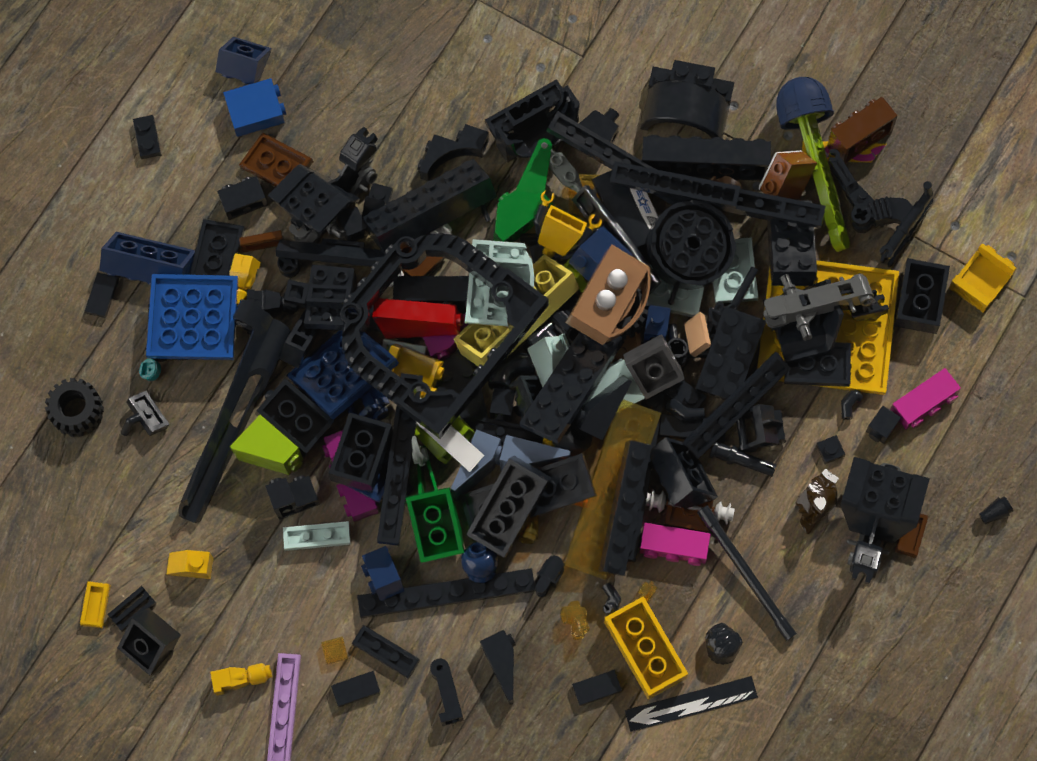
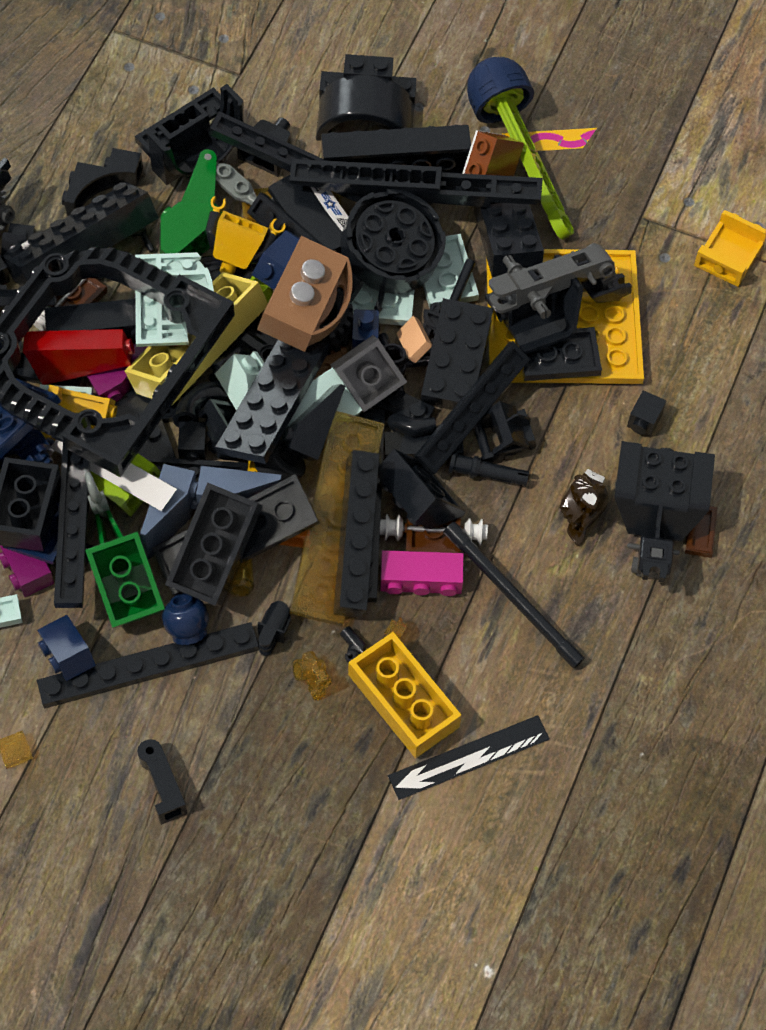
camera: 15 degrees left, 10 degrees down
(355, 689) = (45, 792): black tile -> none
(385, 651) = (79, 743): black tile -> none
(500, 655) = (223, 726): black slope -> none
(597, 687) = (349, 752): black tile -> none
(722, 643) = (497, 680): black hair -> none
(830, 449) = (589, 449): black plate -> none
(848, 401) = (604, 390): black arm -> none
(862, 129) = (568, 110): reddish brown brick -> none
(882, 210) = (604, 188): black piece -> none
(921, 296) = (666, 272): black brick -> none
(926, 399) = (692, 380): dark pink brick -> none

